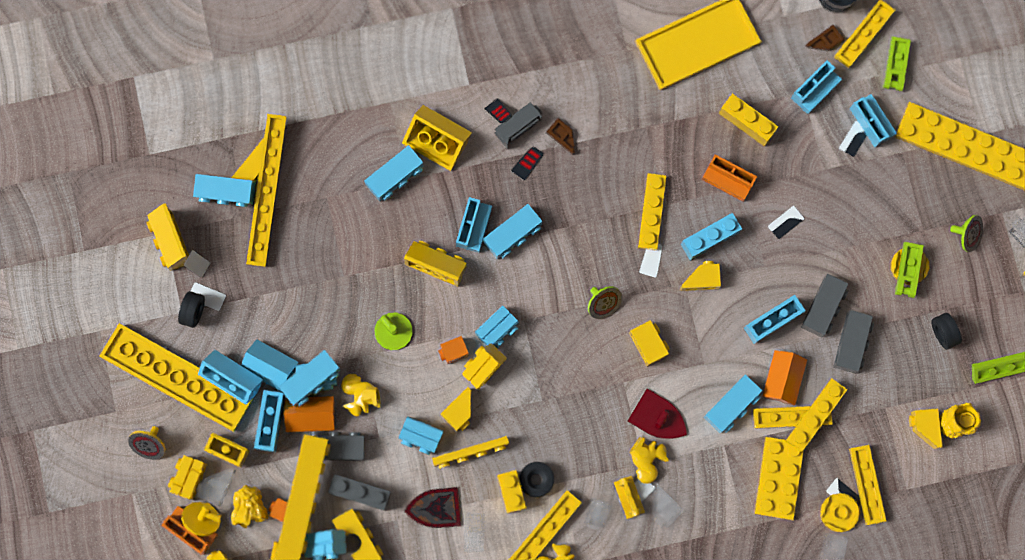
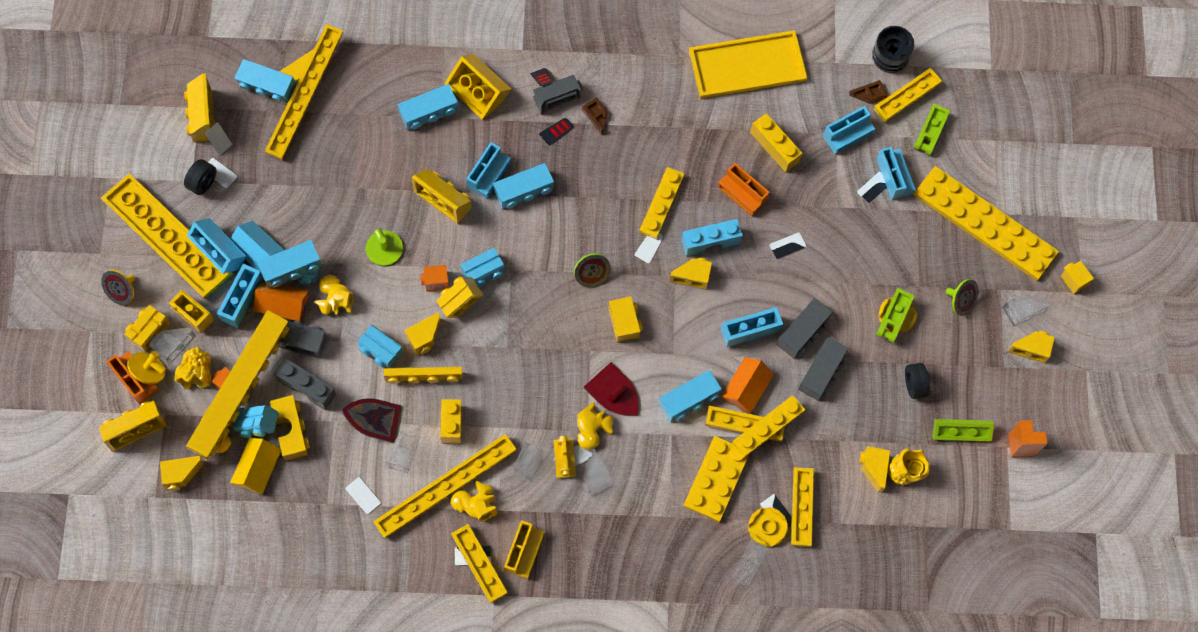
camera: 15 degrees right, 10 degrees down
(536, 468) = (476, 406): black tyre -> none

